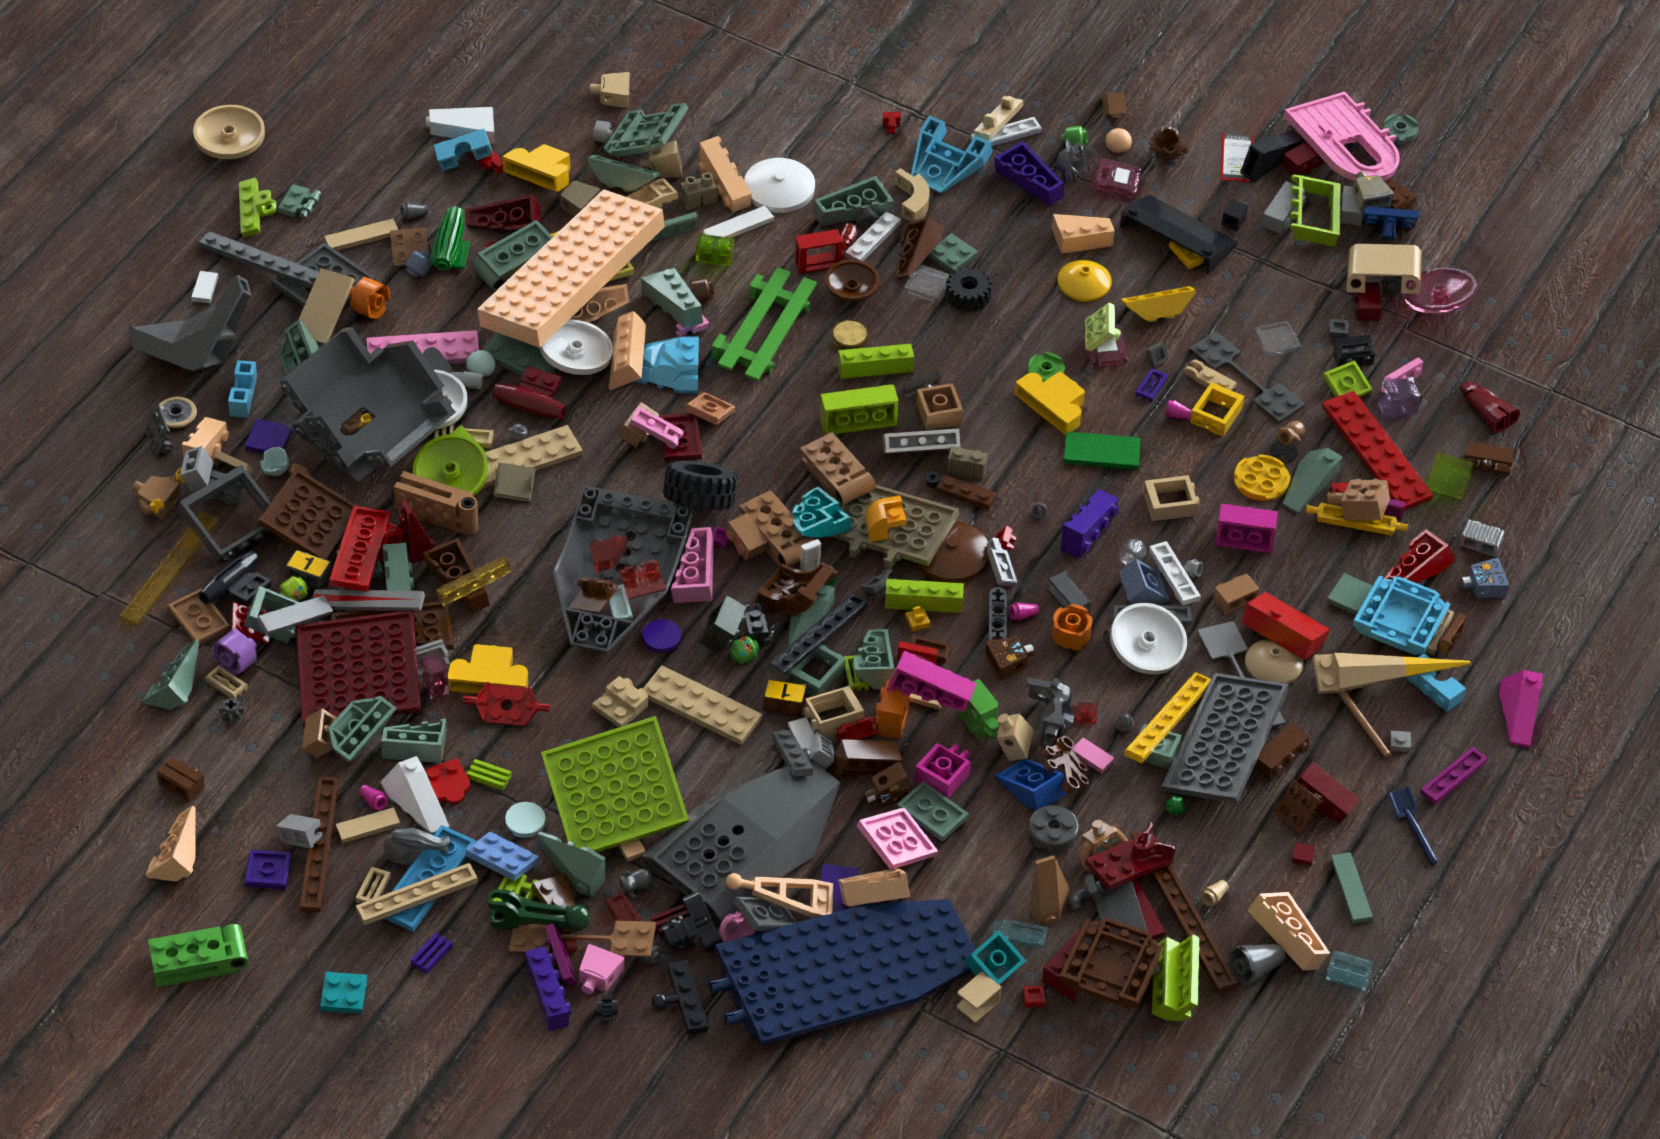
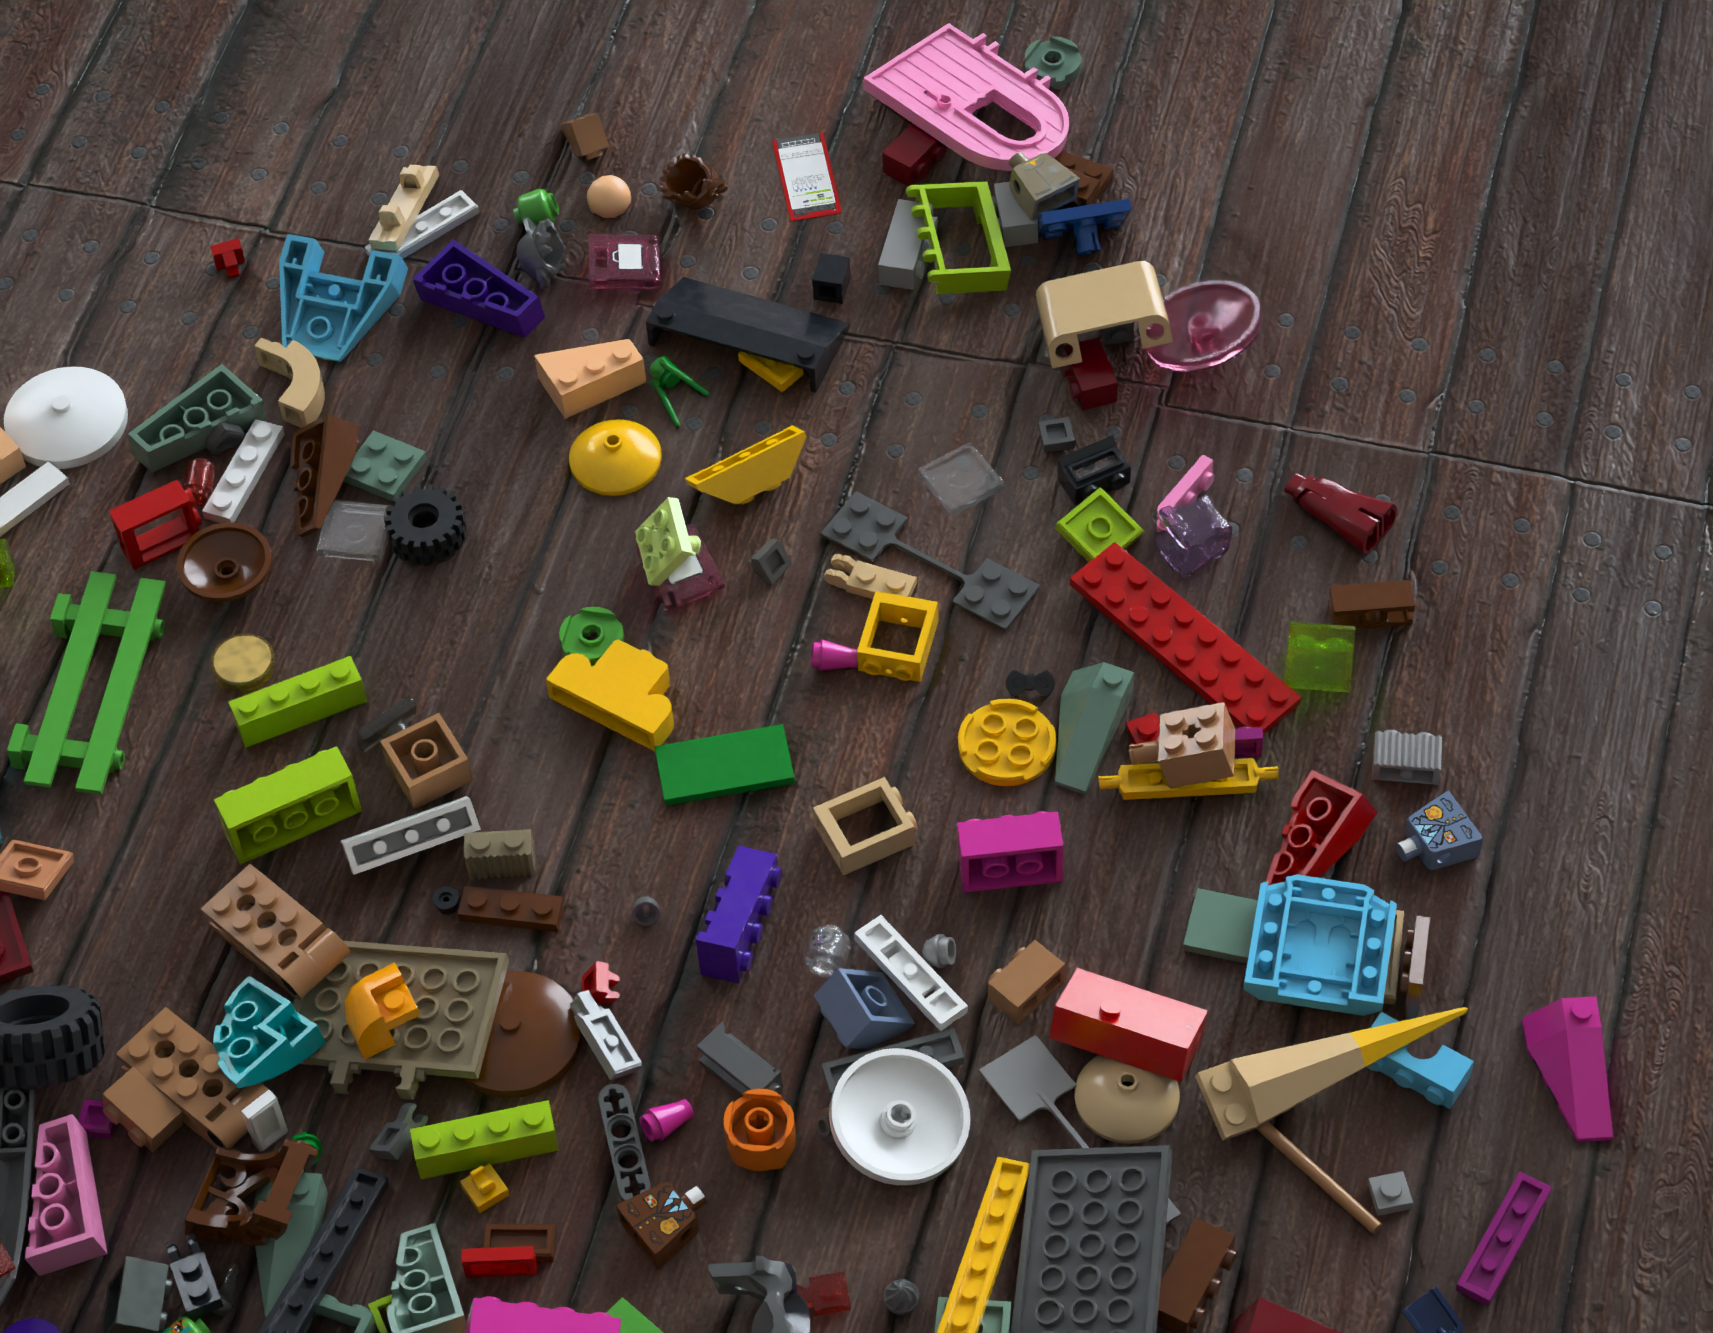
camera: 10 degrees left, 5 degrees up
(1126, 244) = (668, 375): none -> green plant
(1146, 395) = (771, 639): dark purple tile -> none
(1268, 154) = (857, 159): black slope -> none
(1290, 432) = (1032, 648): medium nougat animal -> none

